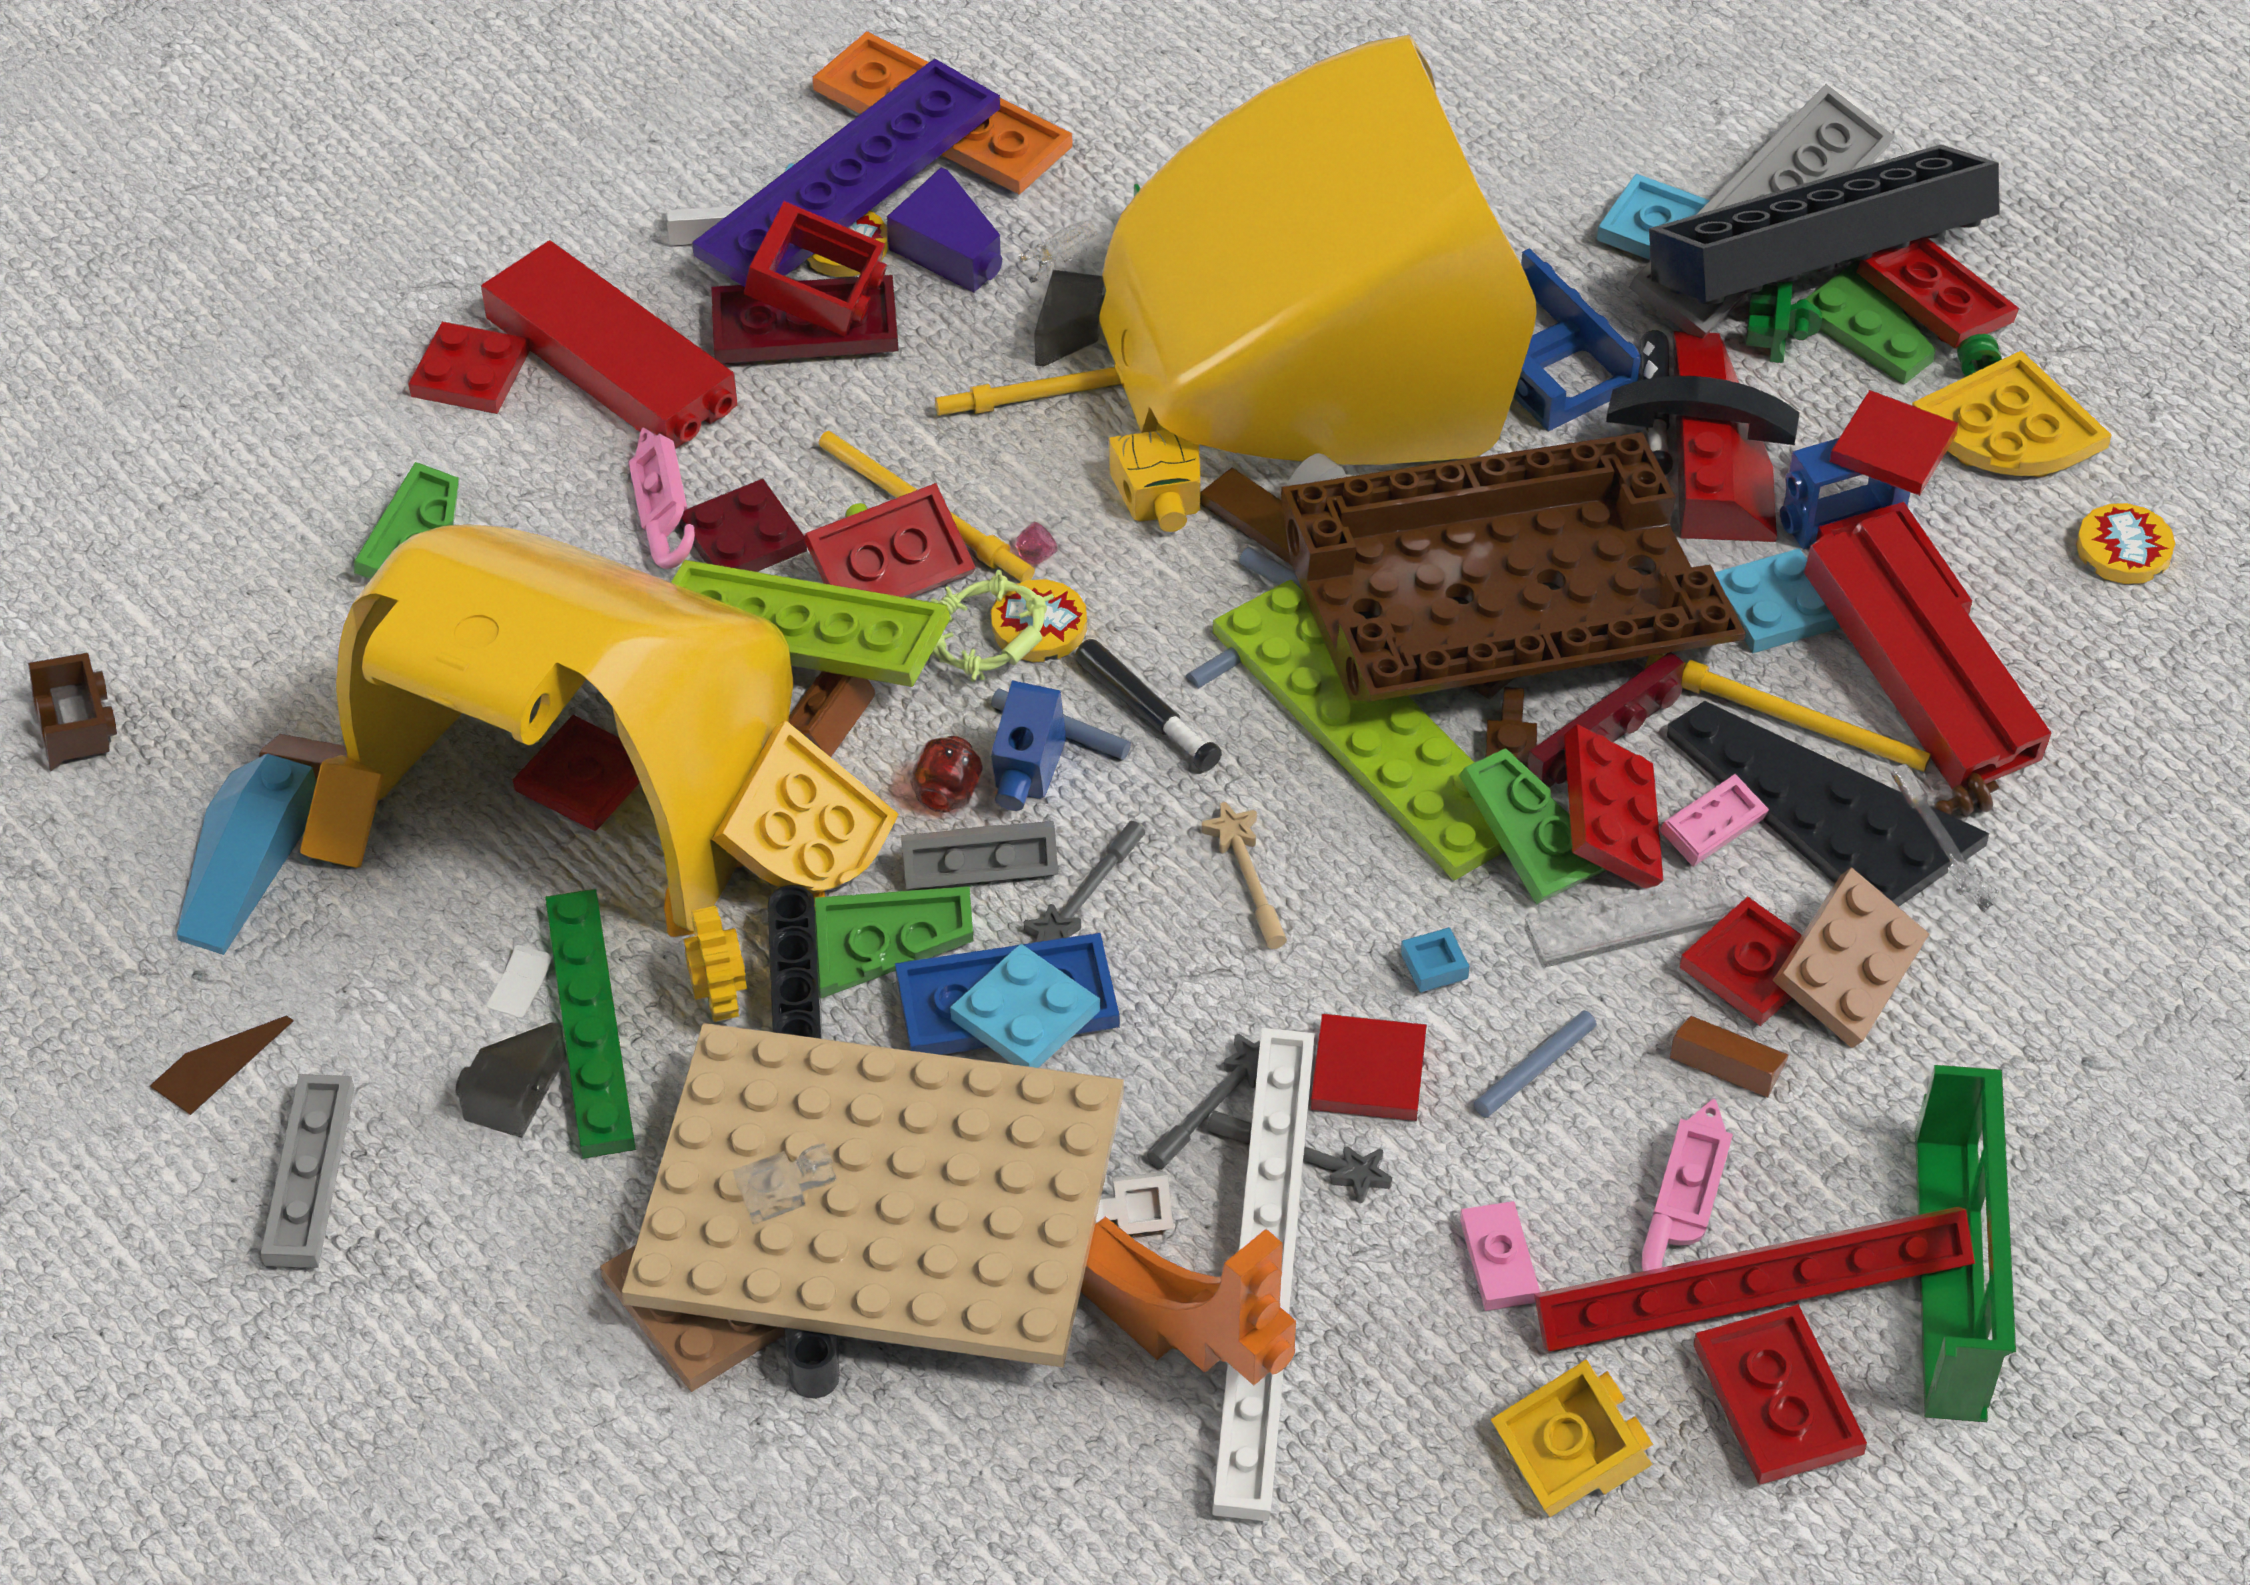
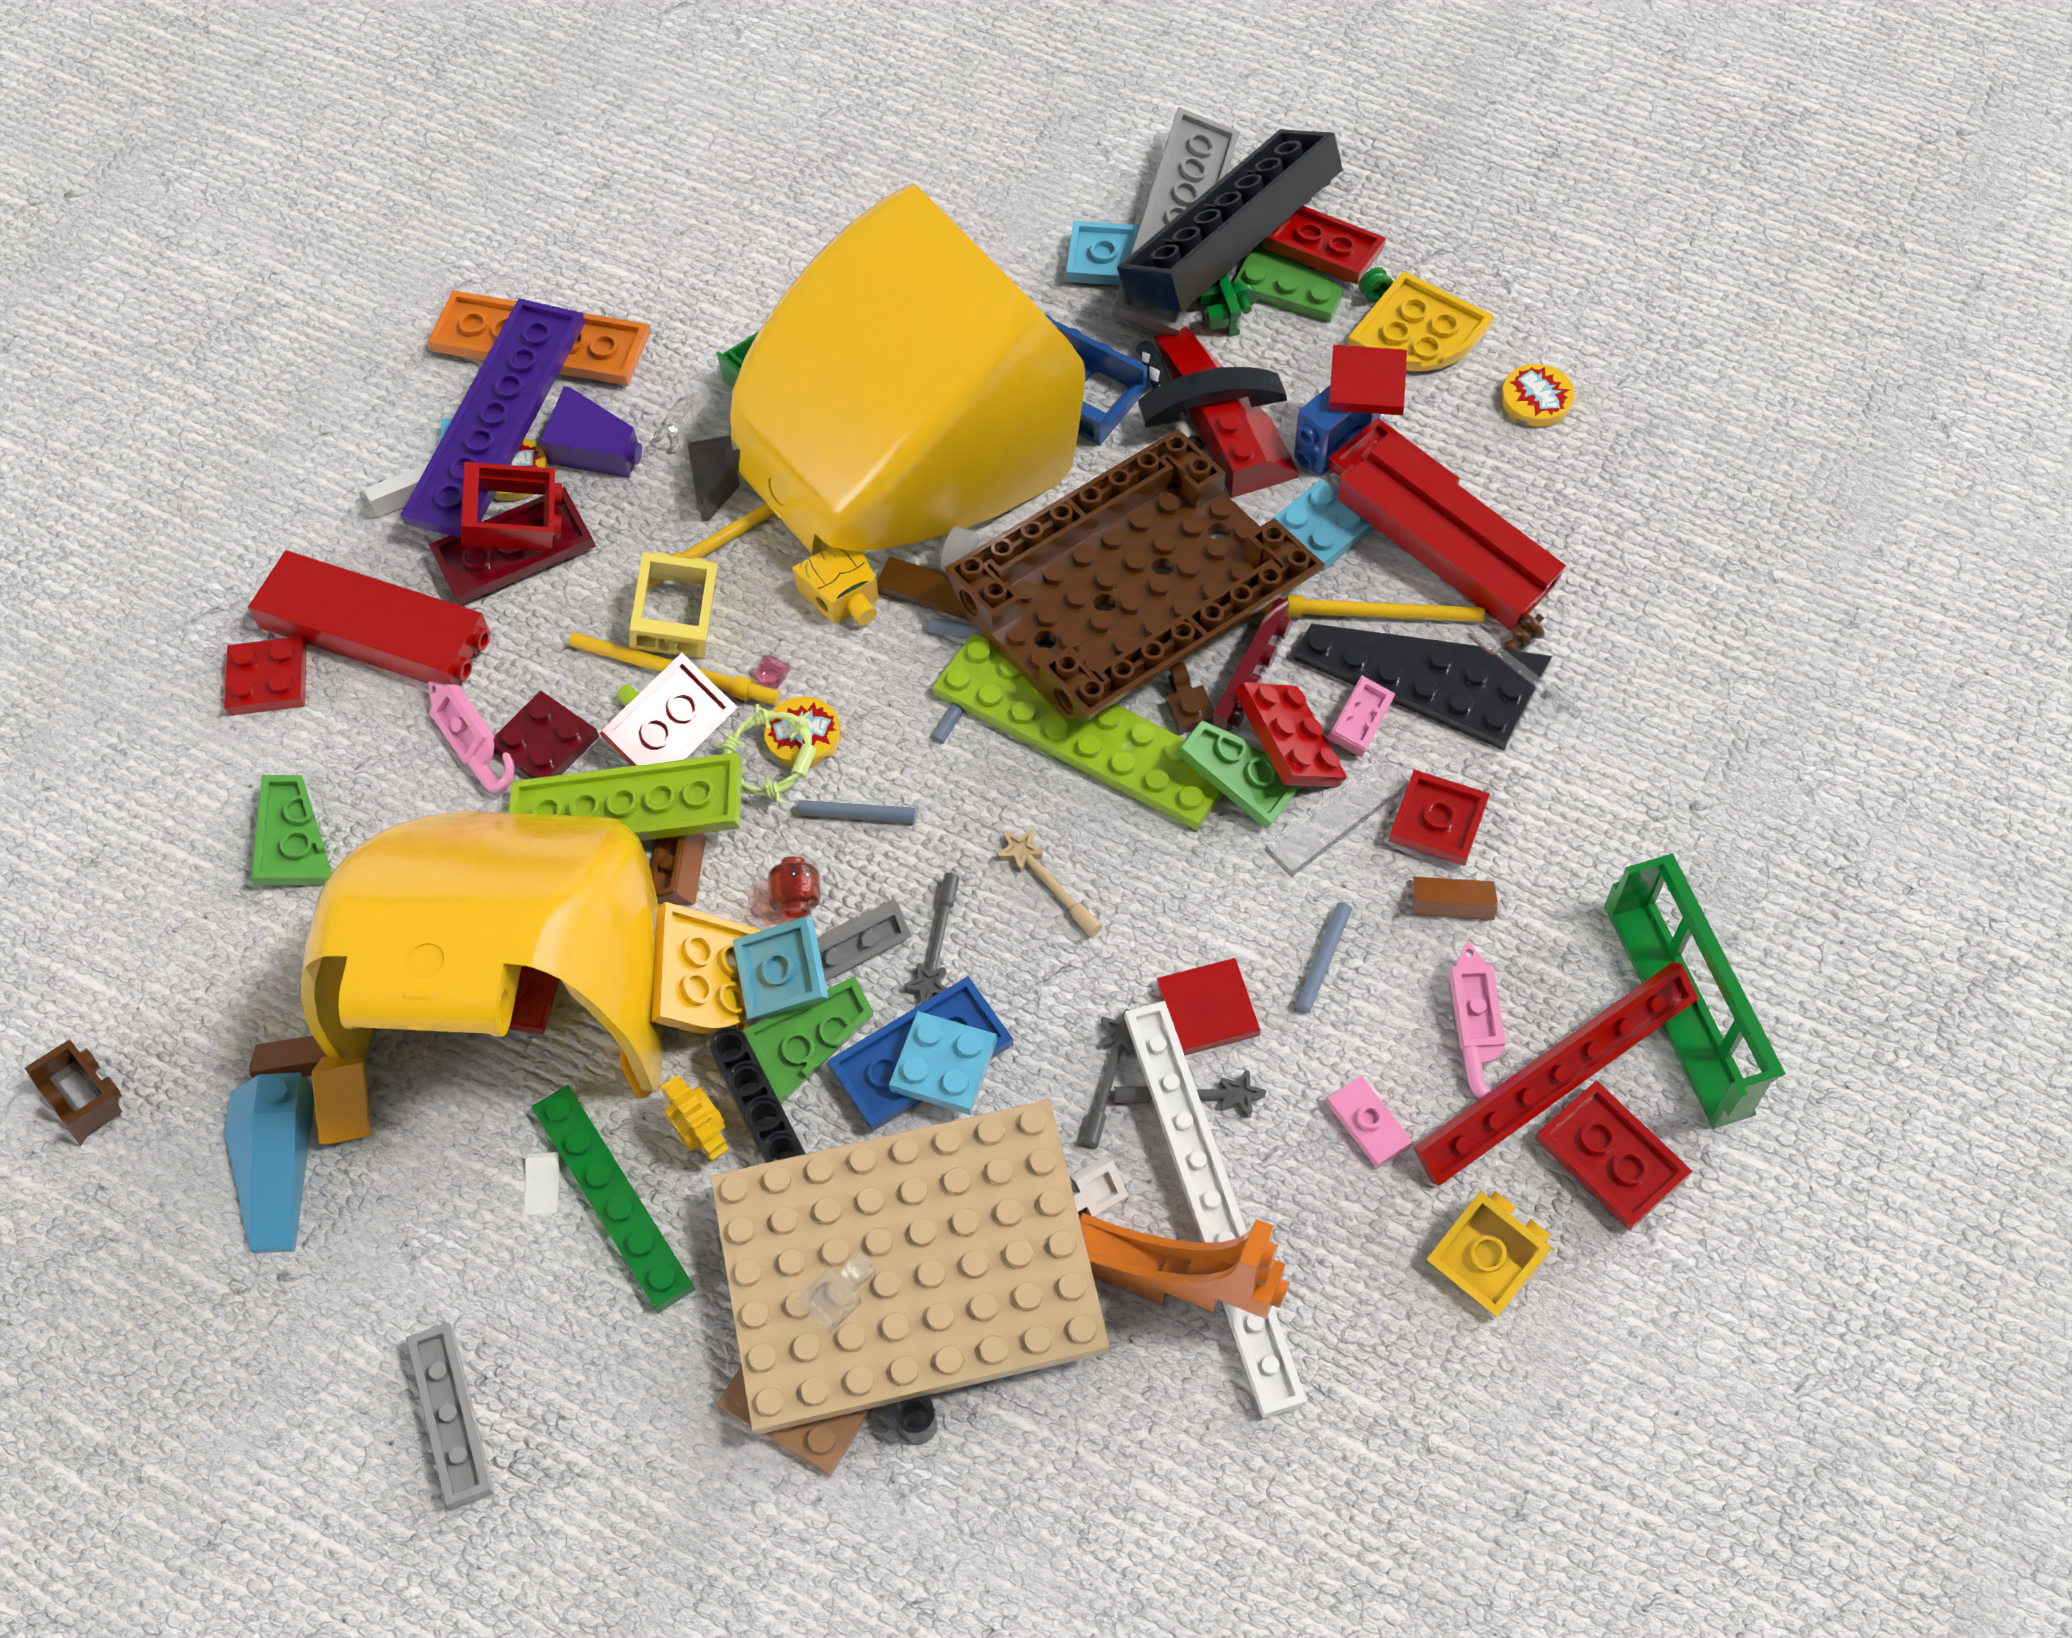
camera: 20 degrees left, 10 degrees up
(208, 1068) = (327, 1354): reddish brown sticker -> none
(511, 1079) = (575, 1274): clear smoke slope -> none
(885, 843) = (780, 969): none -> medium azure plate
(955, 478) = (671, 636): none -> light yellow window
(1027, 744) = (845, 844): blue torso -> none
(1137, 695) = (907, 769): black piece -> none
(1434, 959) = (1217, 902): dark azure plate -> none
(1851, 957) = (1506, 791): medium nougat plate -> none

